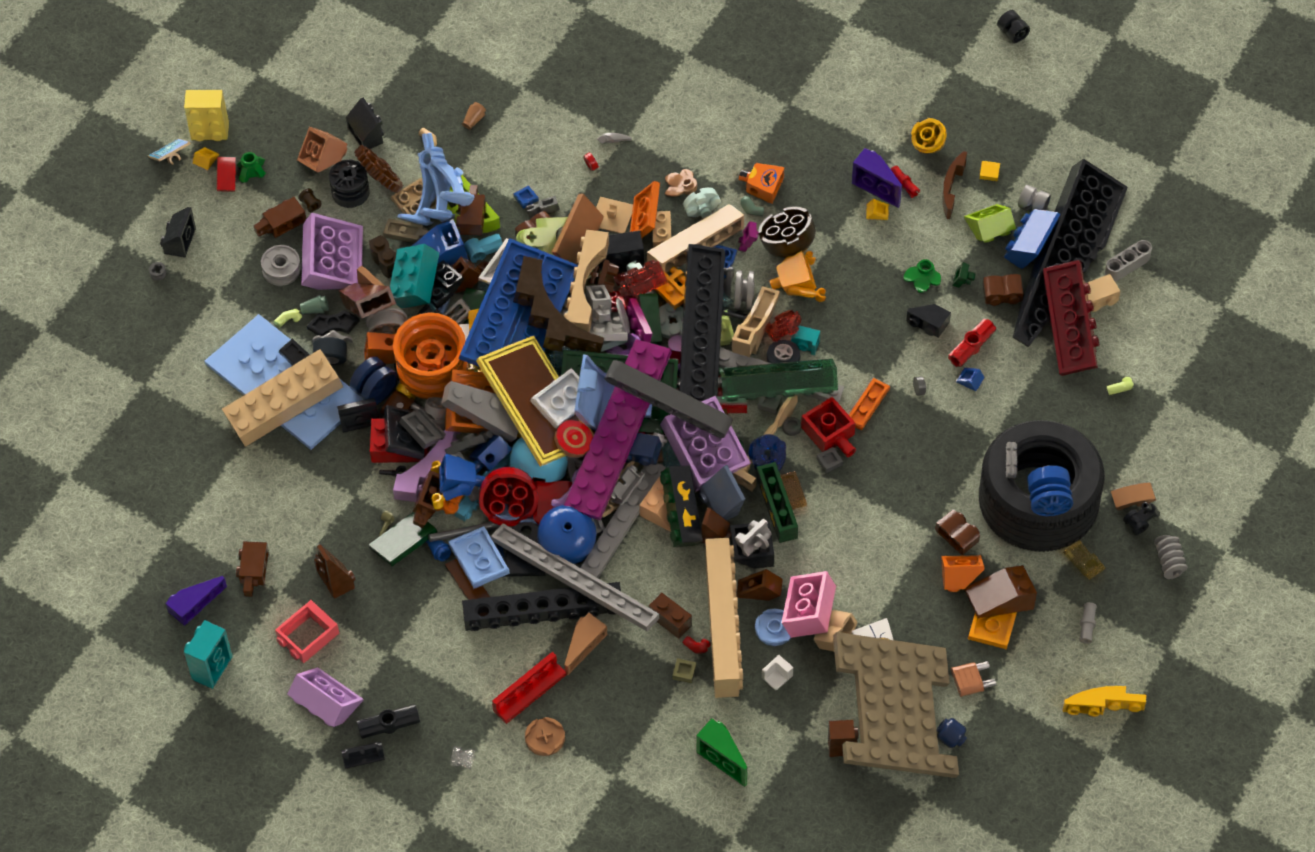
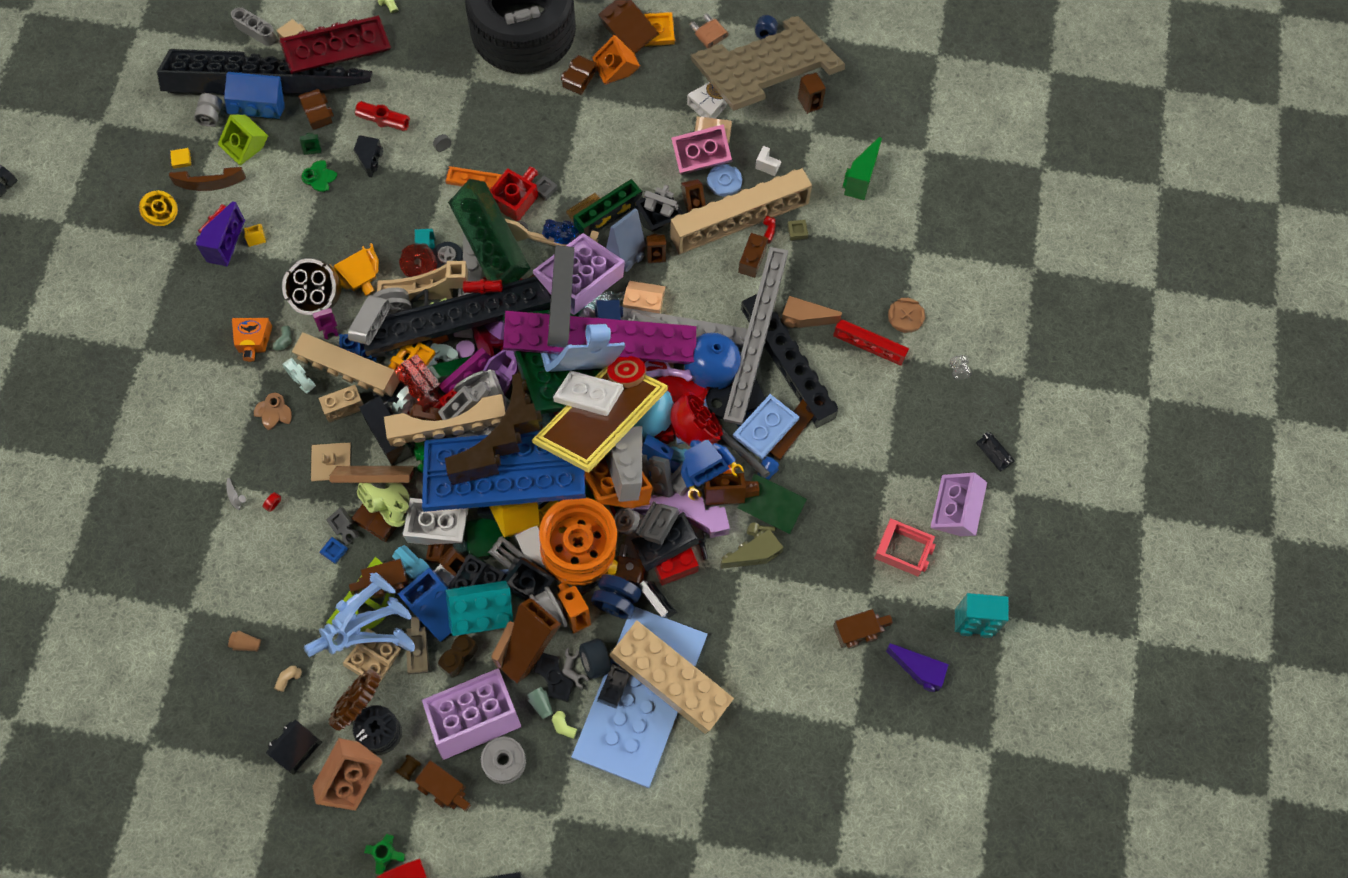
camera: 115 degrees left, 10 degrees up
(333, 573) = (841, 541): reddish brown wedge -> none
(363, 511) = (758, 551): none -> olive slope
(400, 718) = (965, 449): black piece -> none
(645, 209) = (324, 423): orange tile -> none
(681, 506) = (647, 275): brick -> none
(719, 253) = (369, 320): none -> light grey beam
(719, 355) = (482, 286): none -> red pin
(971, 378) = (417, 111): blue slope -> none

